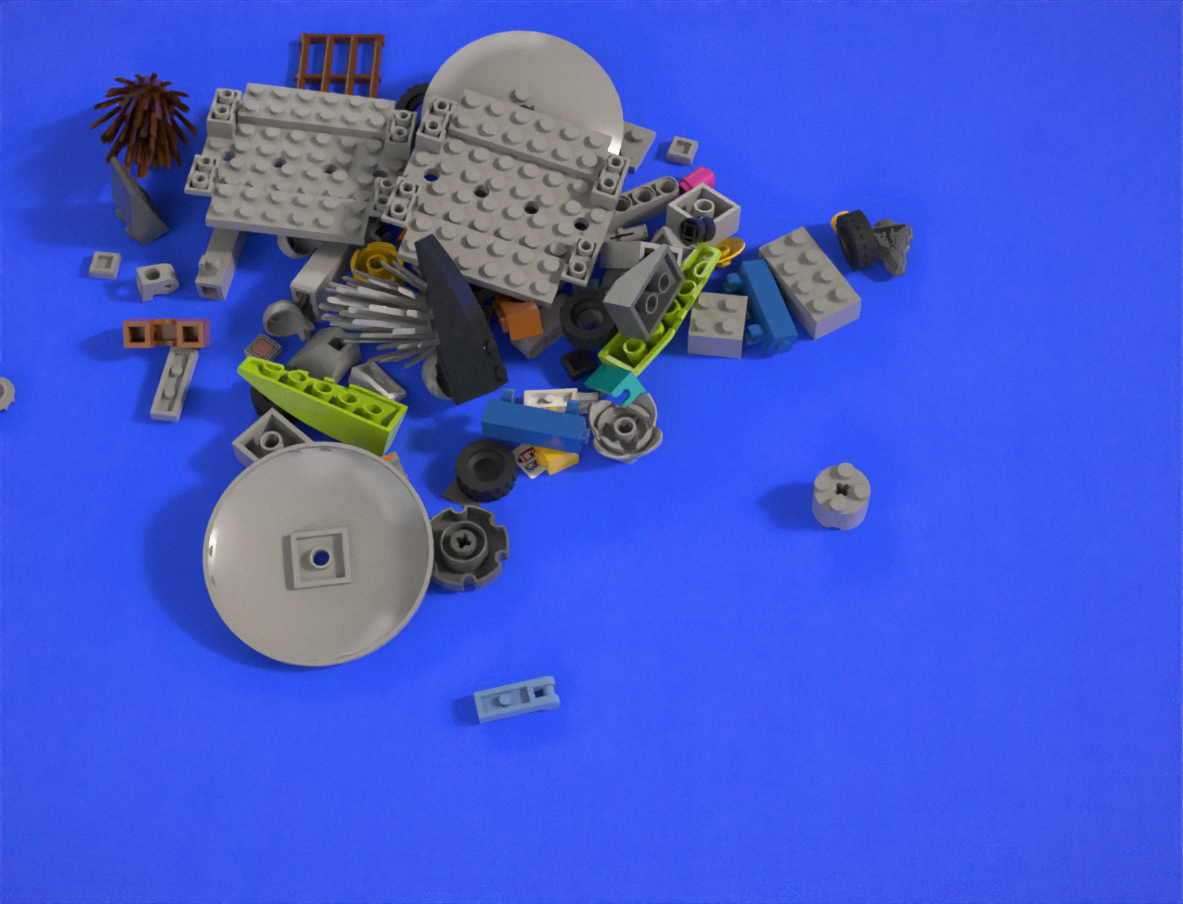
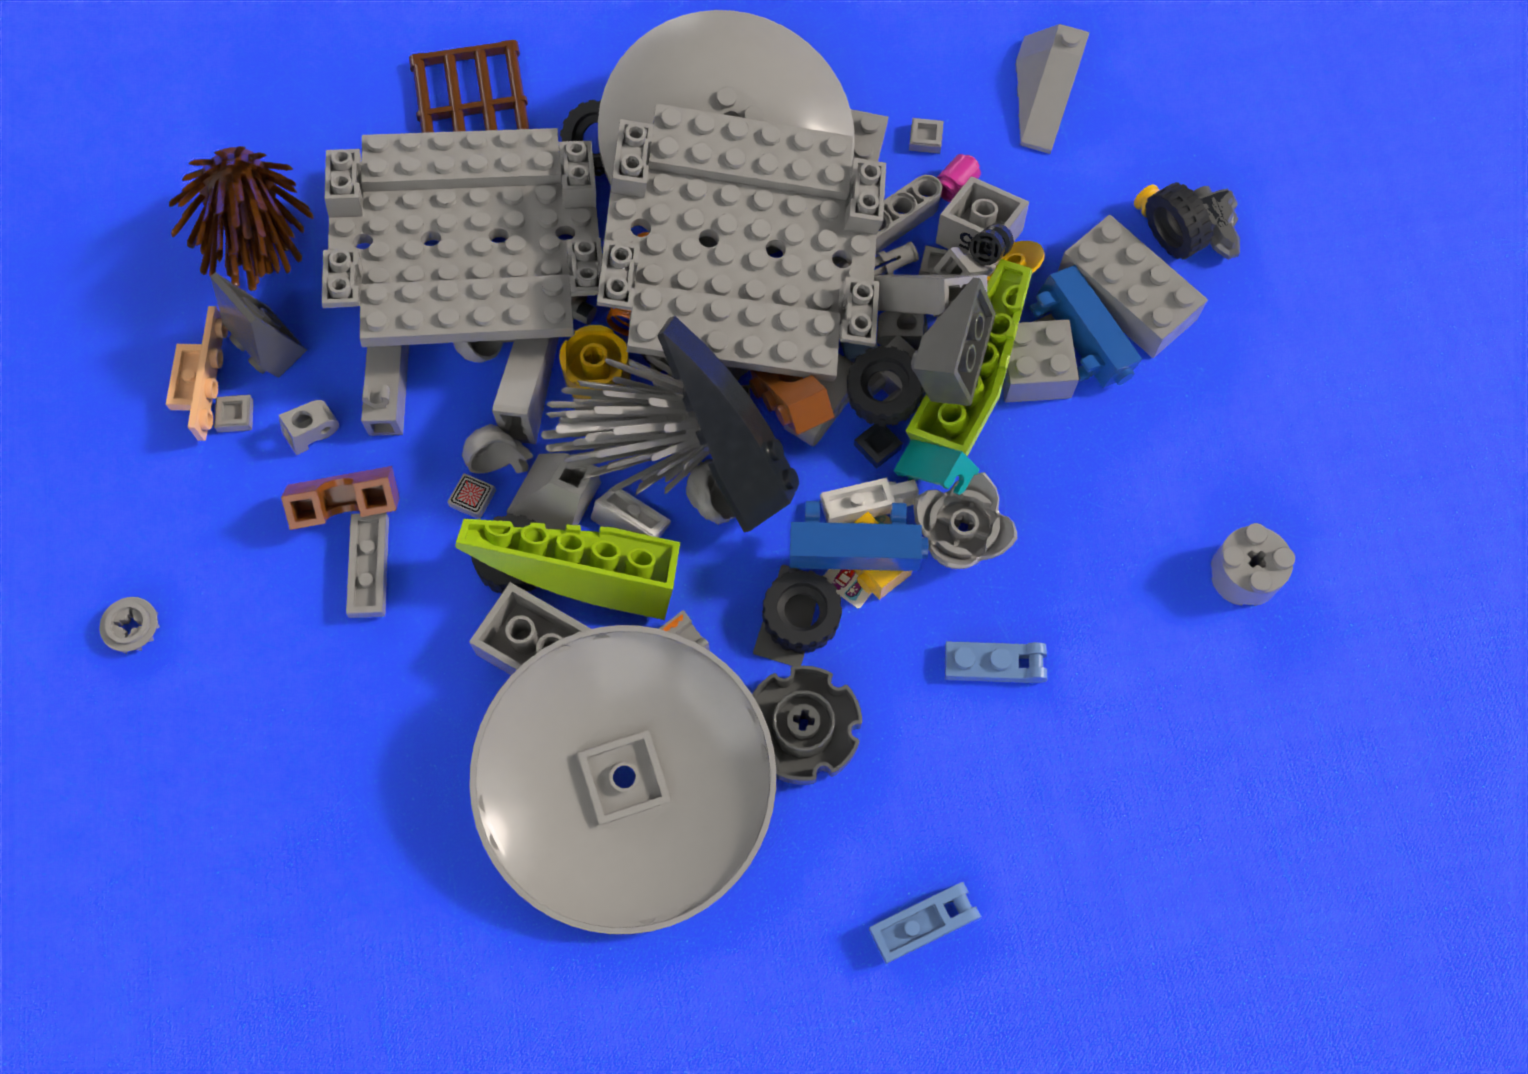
camera: 15 degrees left, 10 degrees up
(84, 231) = (195, 374): none -> light nougat bracket
(624, 532) = (995, 662): none -> medium blue plate
(788, 126) = (1045, 80): none -> light grey wedge

